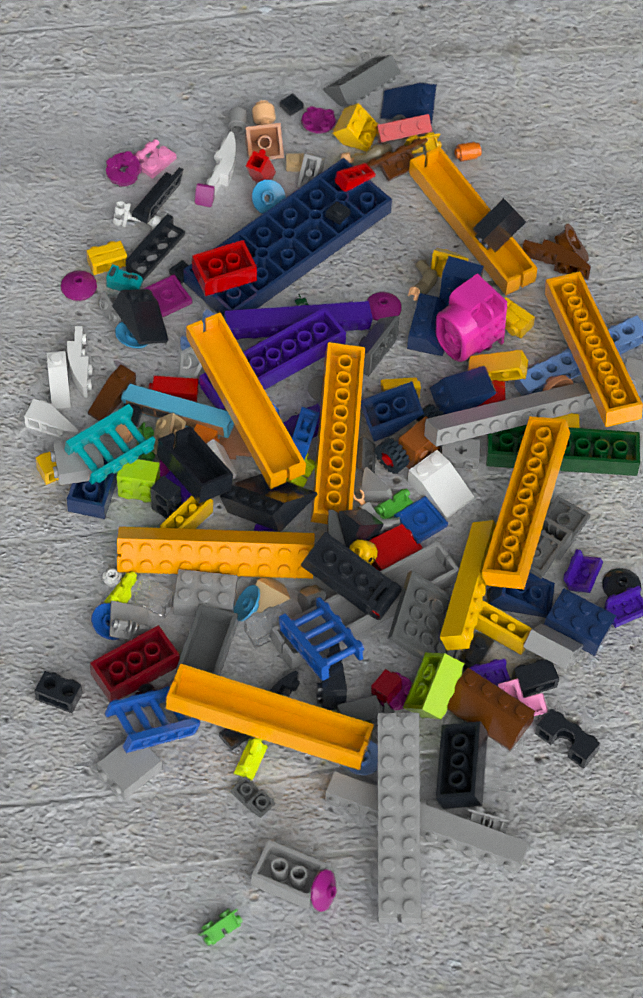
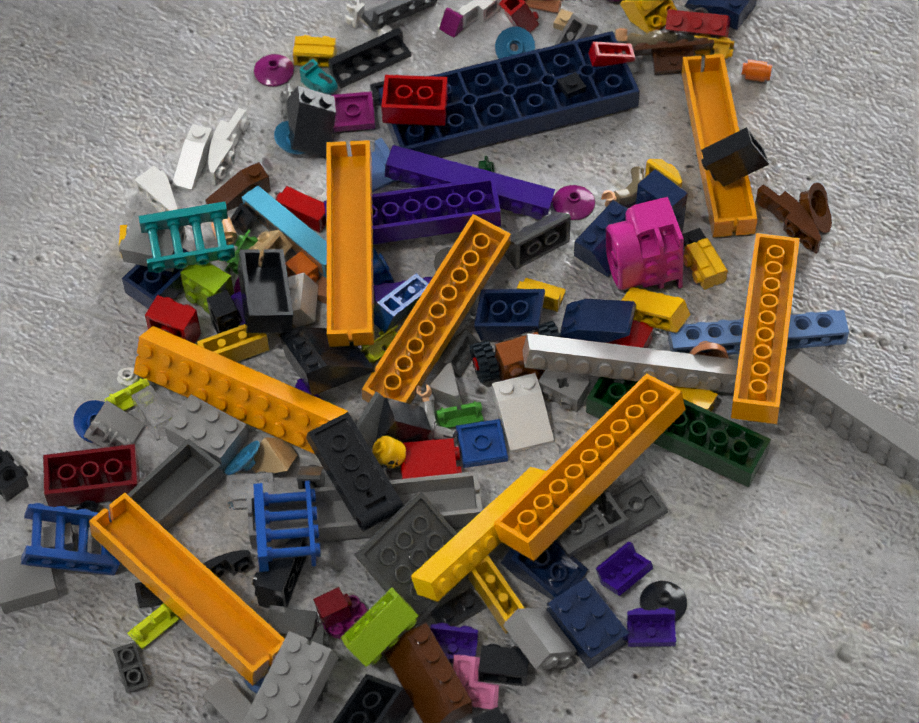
camera: 30 degrees right, 0 degrees up
(127, 514) = (174, 318): none -> red brick

